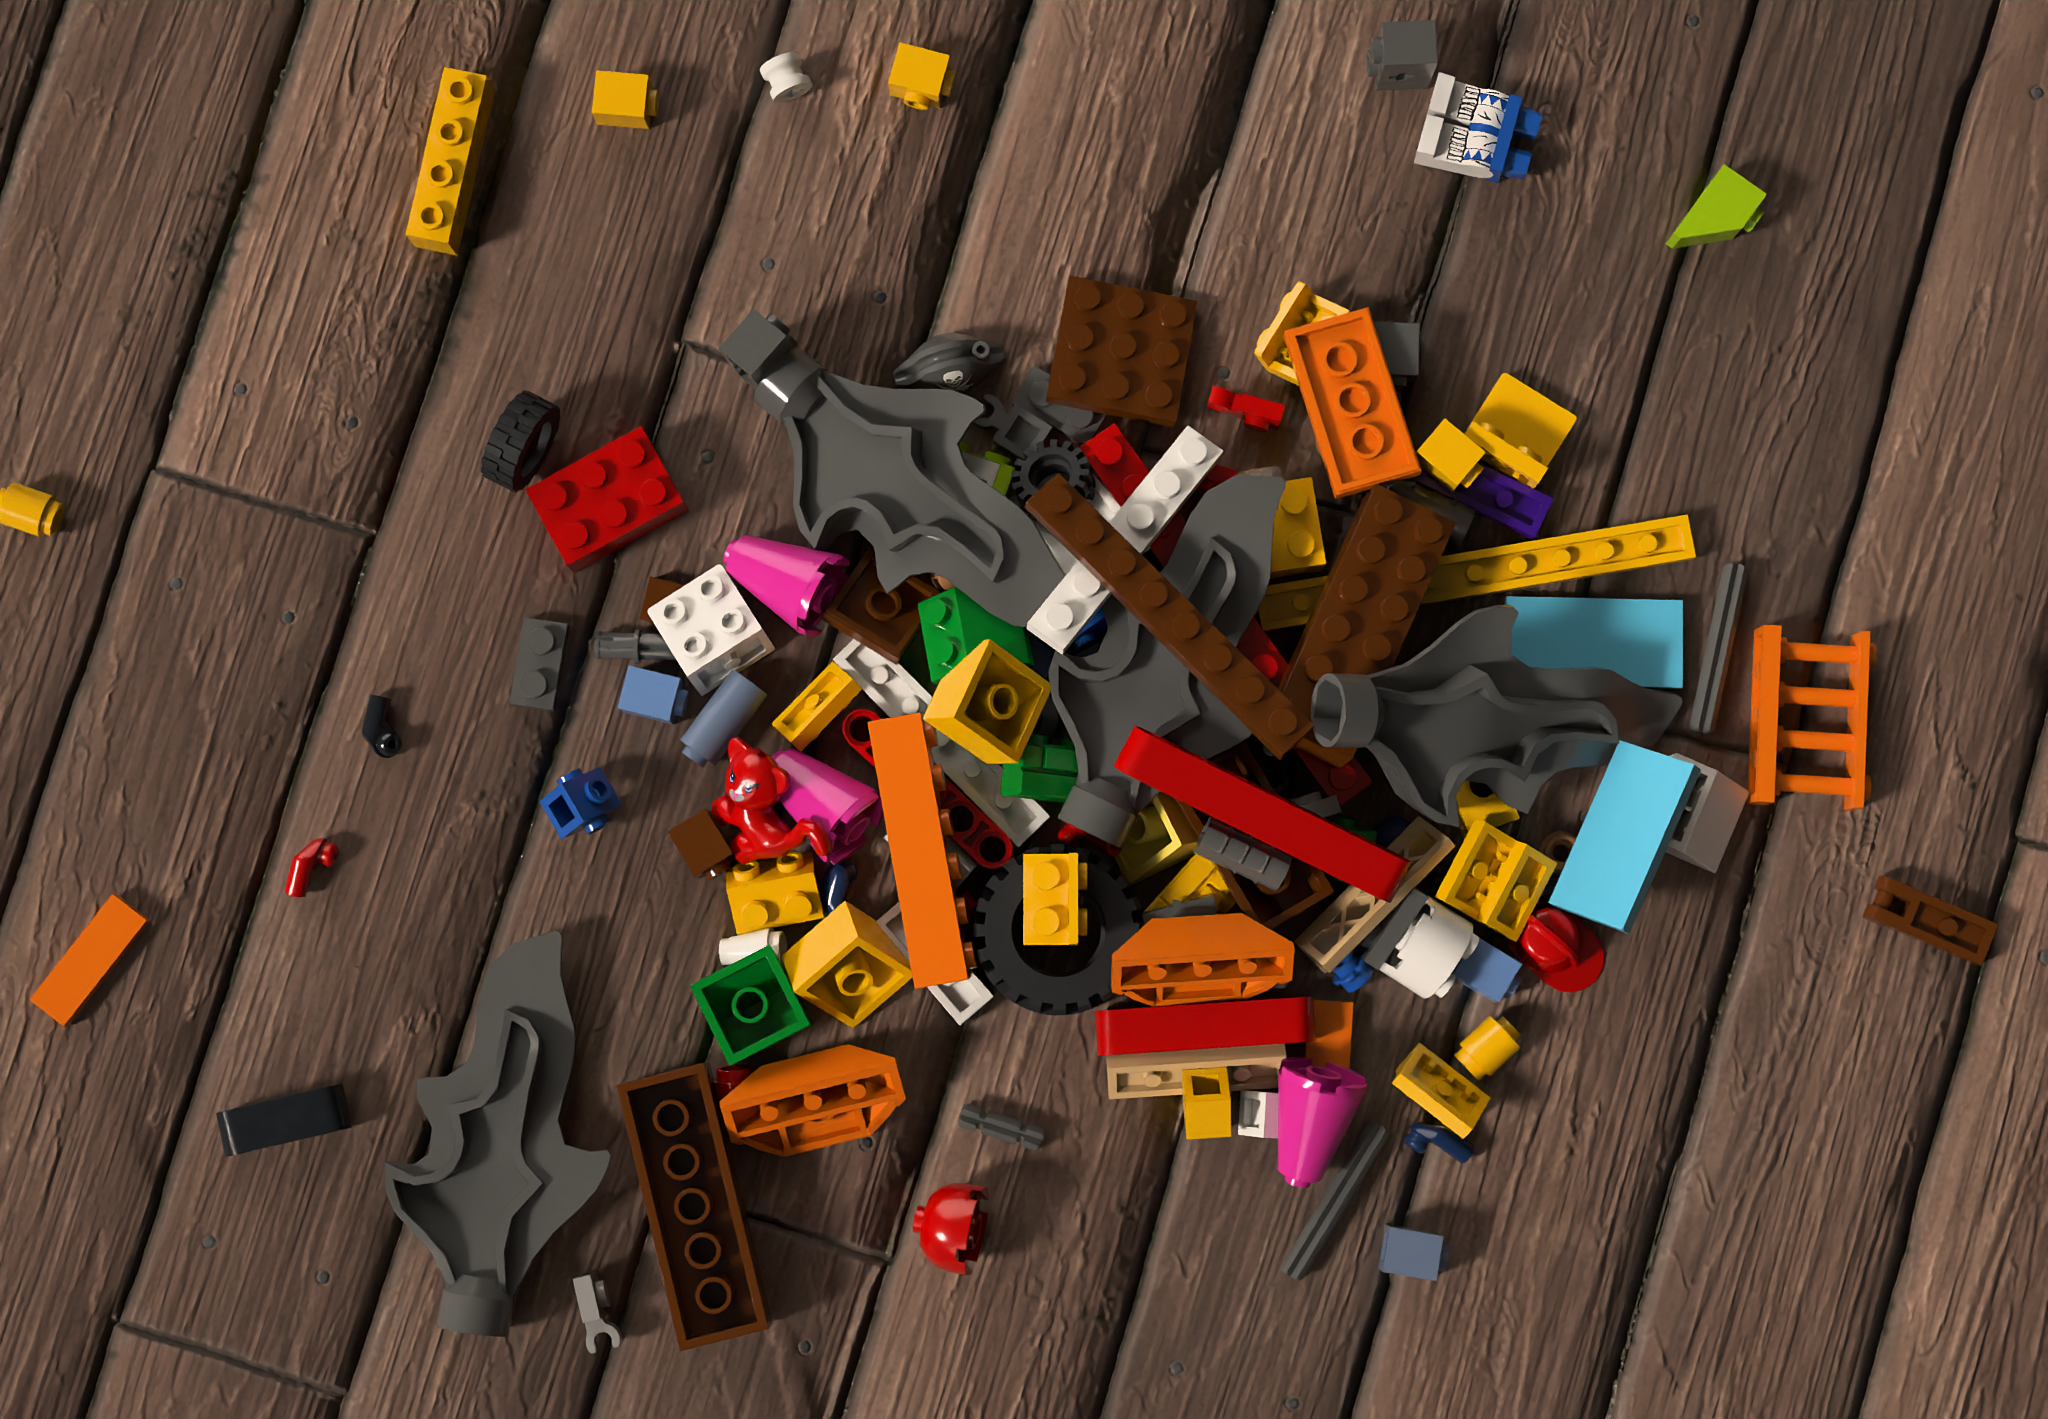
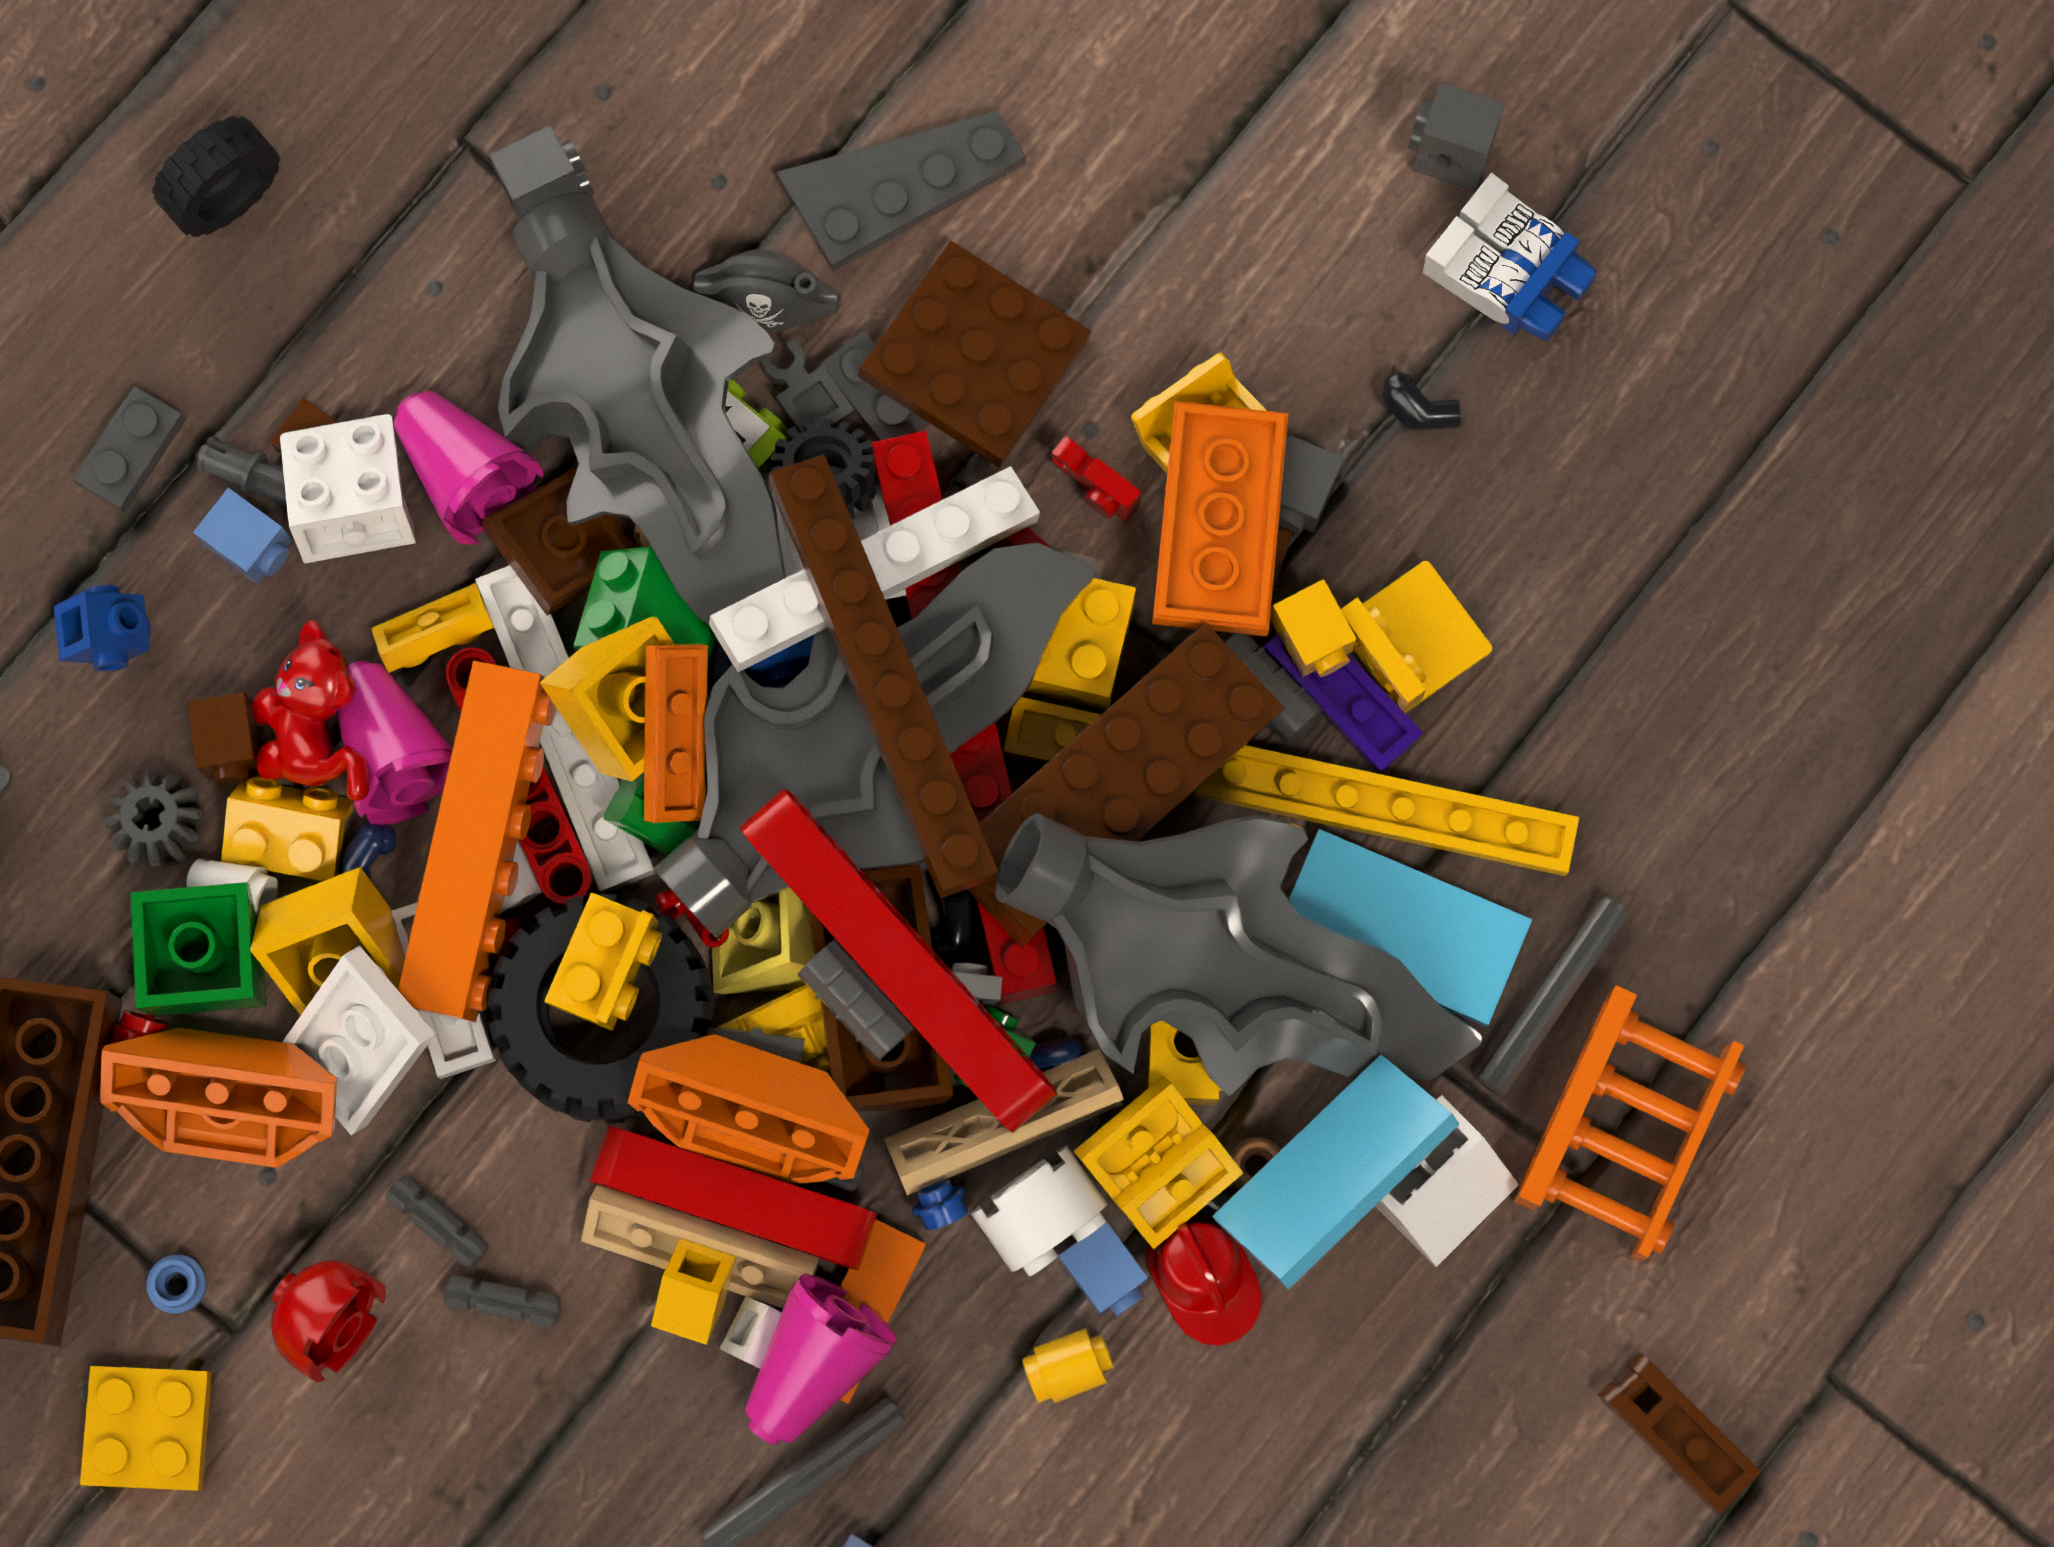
camera: 20 degrees right, 5 degrees down
(607, 499) = (290, 287): red brick -> none
(663, 928) = (134, 821): none -> dark grey gear
(722, 719) = (315, 594): sand blue brick -> none
(822, 1250) = (159, 1279): none -> medium blue plate
(858, 1355) = (146, 1428): none -> yellow plate
(898, 1020) = (361, 1036): none -> white plate
(1007, 252) = (889, 187): none -> dark grey wing
(1034, 715) = (675, 732): none -> orange tile
(1072, 1163) = (502, 1301): none -> dark grey axle
(1386, 935) = (991, 1178): dark grey plate -> none
(1440, 1090) = (984, 1392): yellow bracket -> none
(1443, 1137) = (965, 1452): dark blue arm -> none
(1450, 265) = (1414, 409): none -> black arm
(1720, 211) = (1767, 471): lime slope -> none

